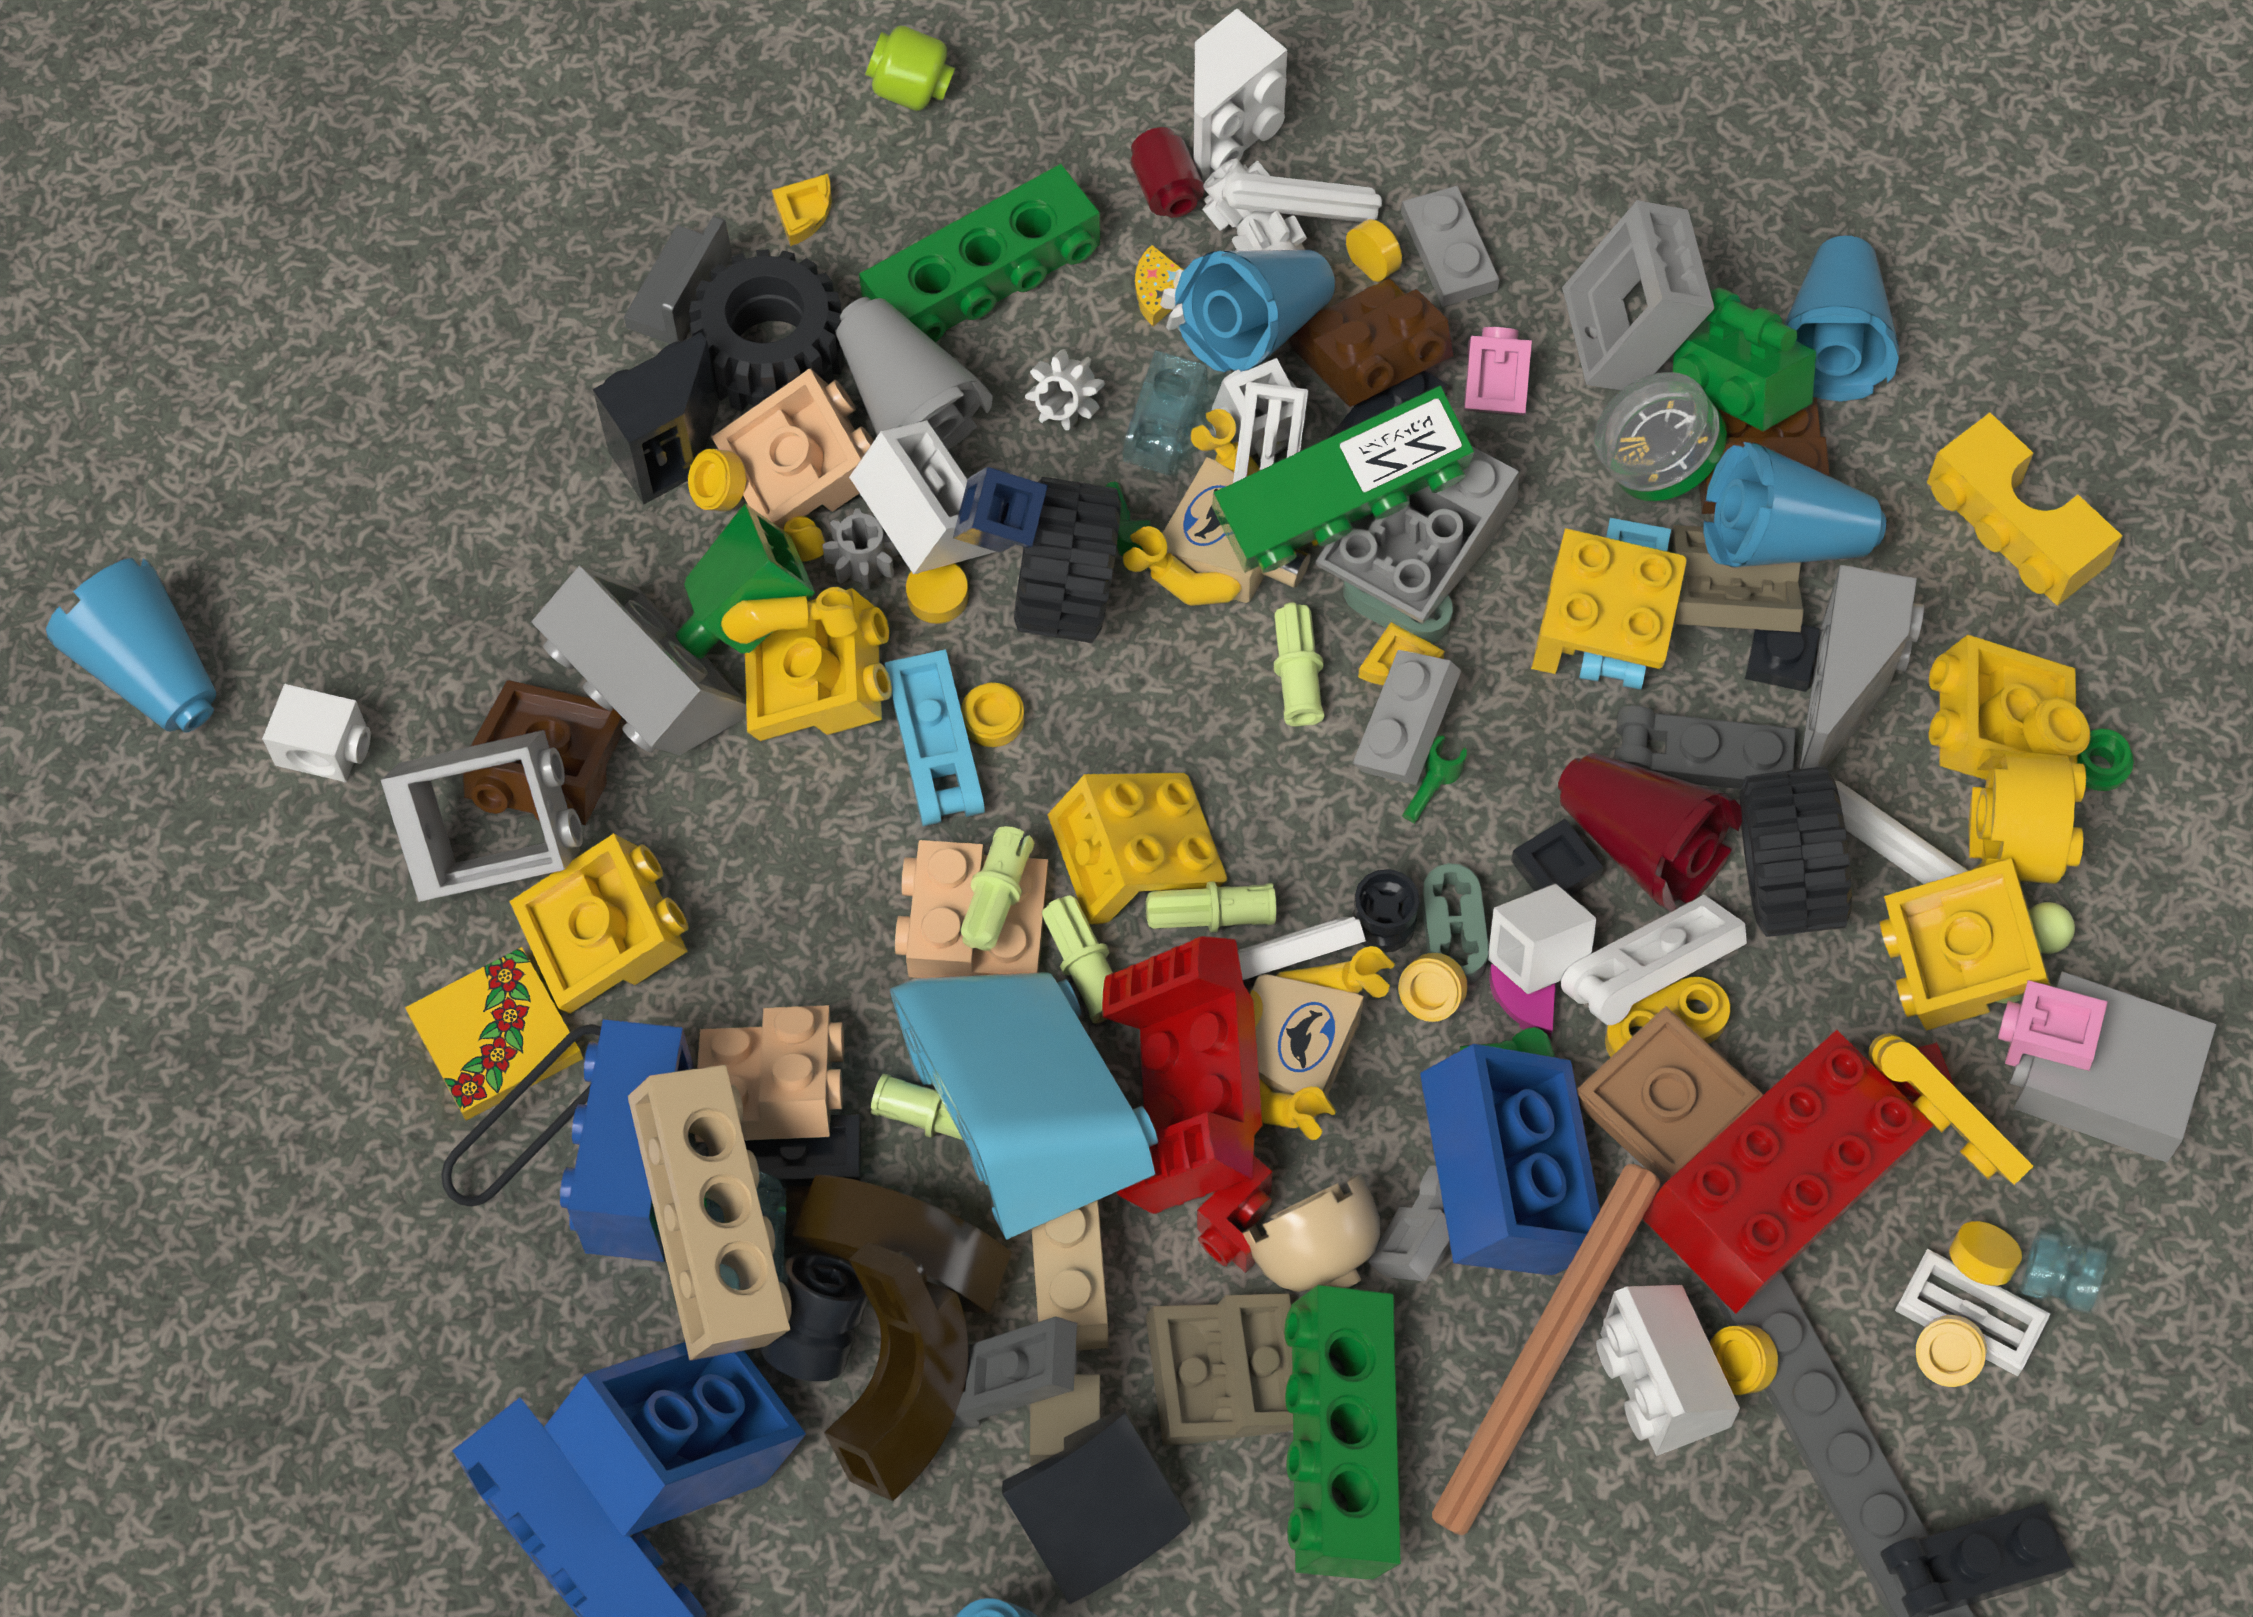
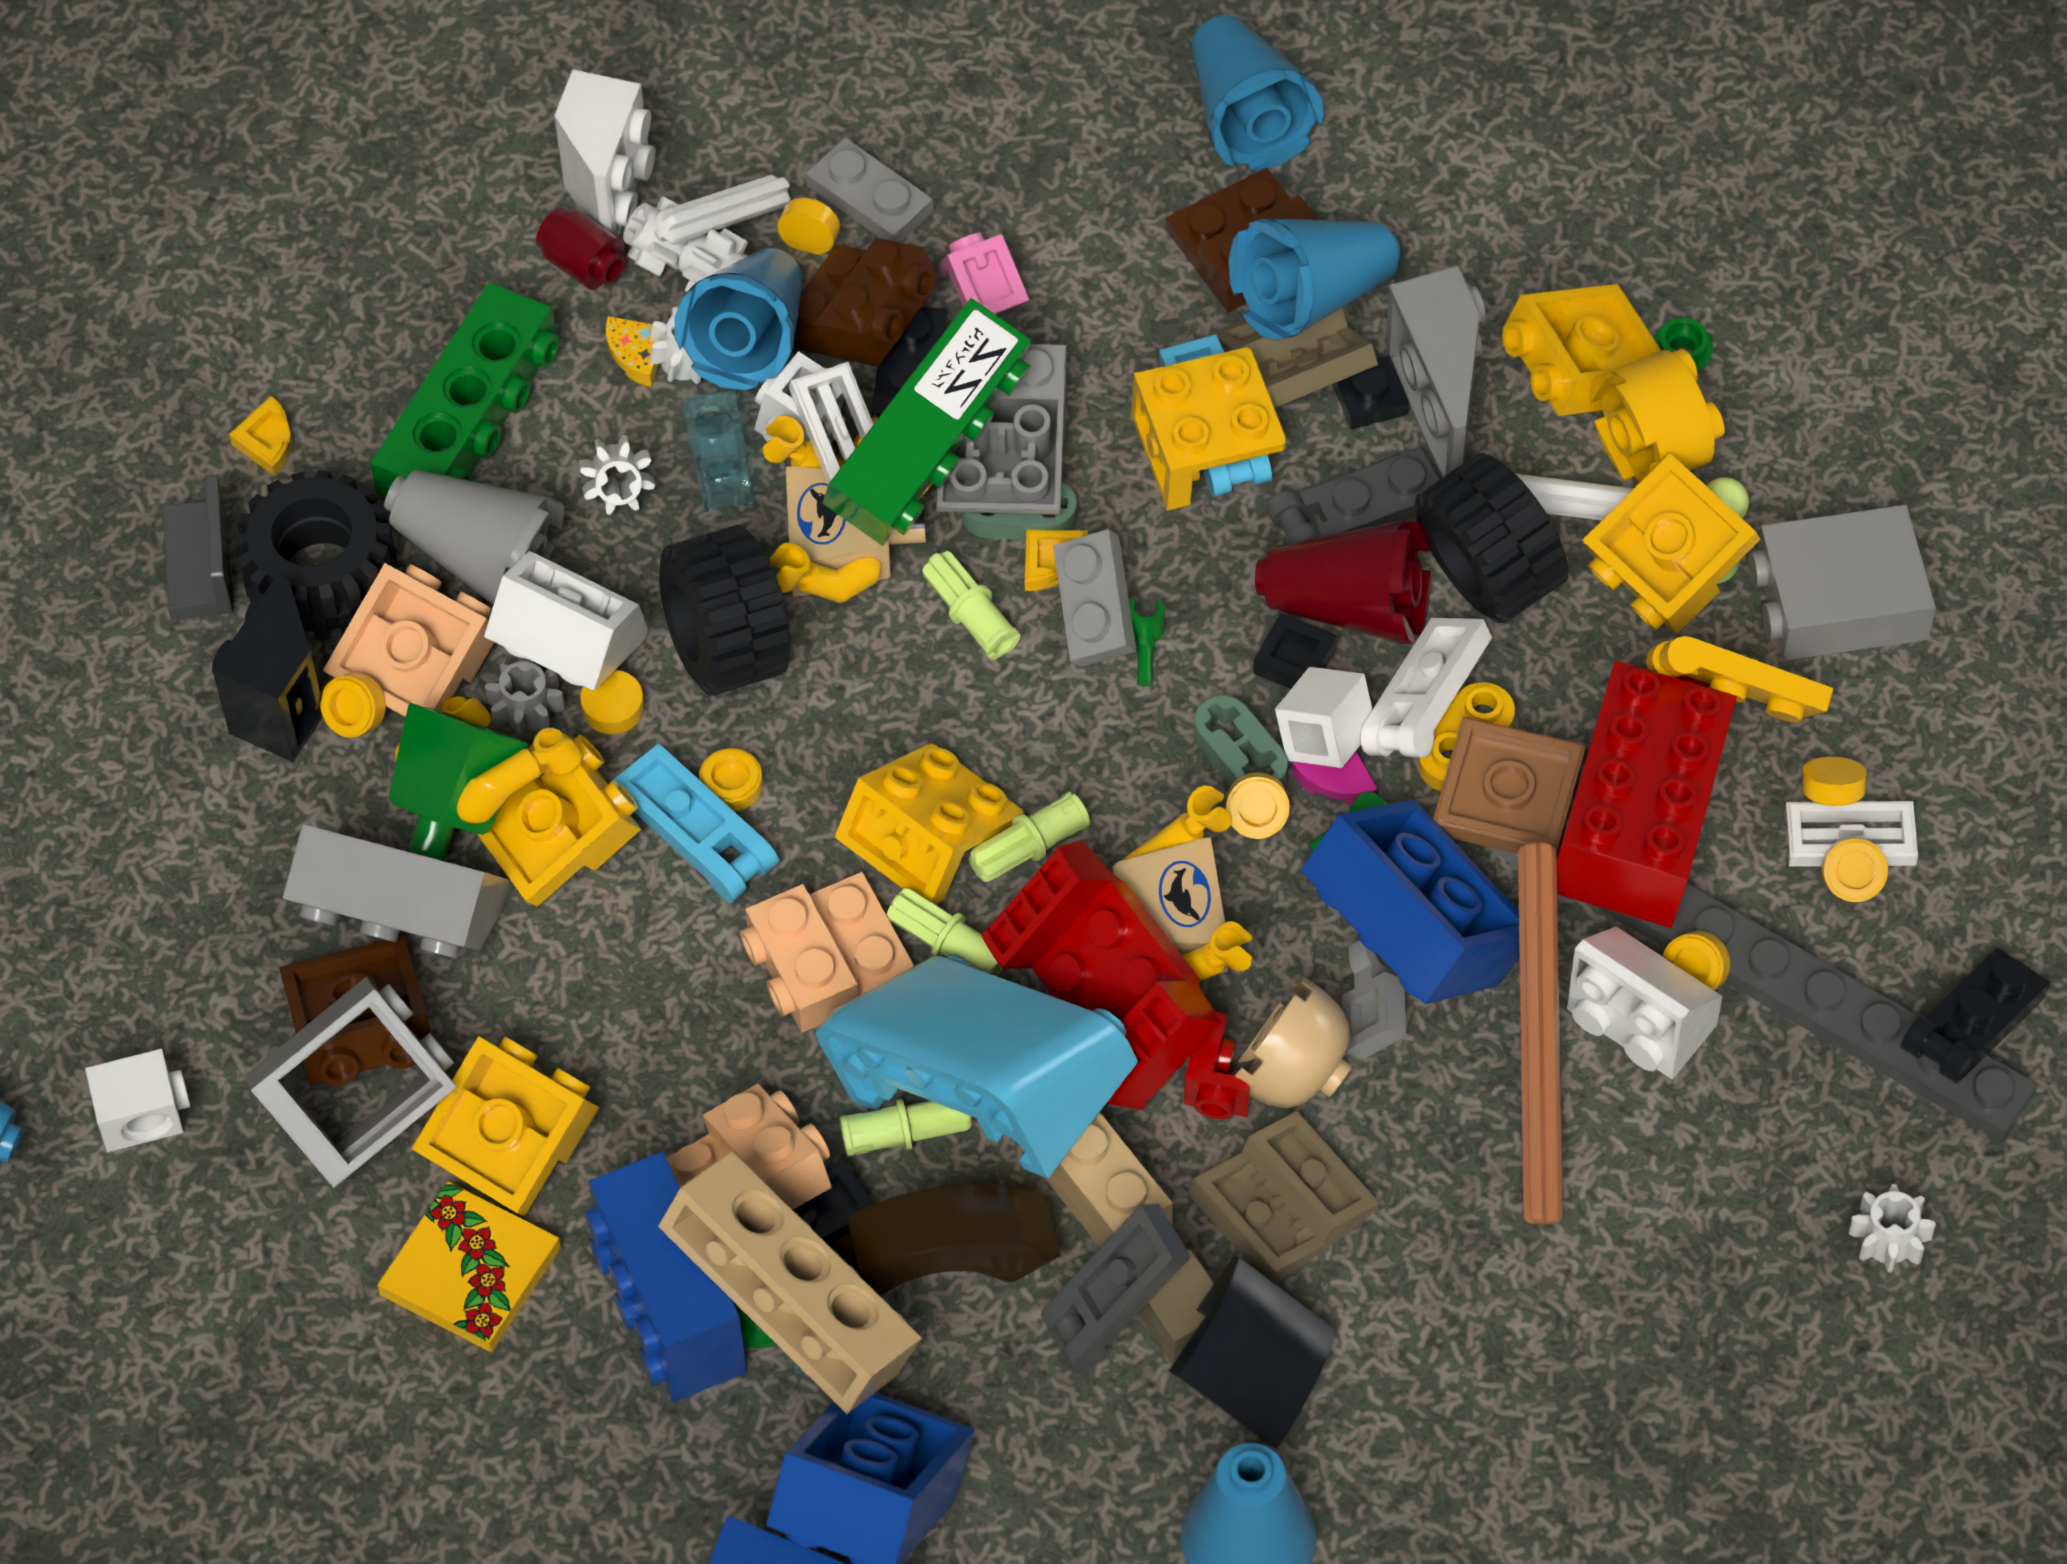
camera: 30 degrees left, 5 degrees down
(500, 1109) = (528, 1310): black piece -> none
(824, 1312) = (933, 1311): black wheel -> none
(909, 68) = (286, 267): lime head -> none
(917, 1380) = (1038, 1333): dark brown arch -> none
(996, 888) = (842, 909): yellowish green axle -> none
(999, 510) = (656, 588): dark blue brick -> none
(1300, 946) = (1134, 821): white tile -> none
(1360, 1333) = (1417, 1189): green brick -> none
(1390, 898) = (1177, 763): black wheel -> none
(1660, 436) = (1160, 261): clear piece -> none
(1662, 251) = (1075, 94): light grey window -> none
(1748, 362) = (1192, 162): green brick -> none
(2048, 1267) = (1904, 761): clear light blue wheel -> none
(2051, 548) = (1537, 196): yellow arch -> none
(2053, 1026) = (1782, 569): bright pink bracket -> none
(2056, 728) = (1635, 335): yellow tile -> none

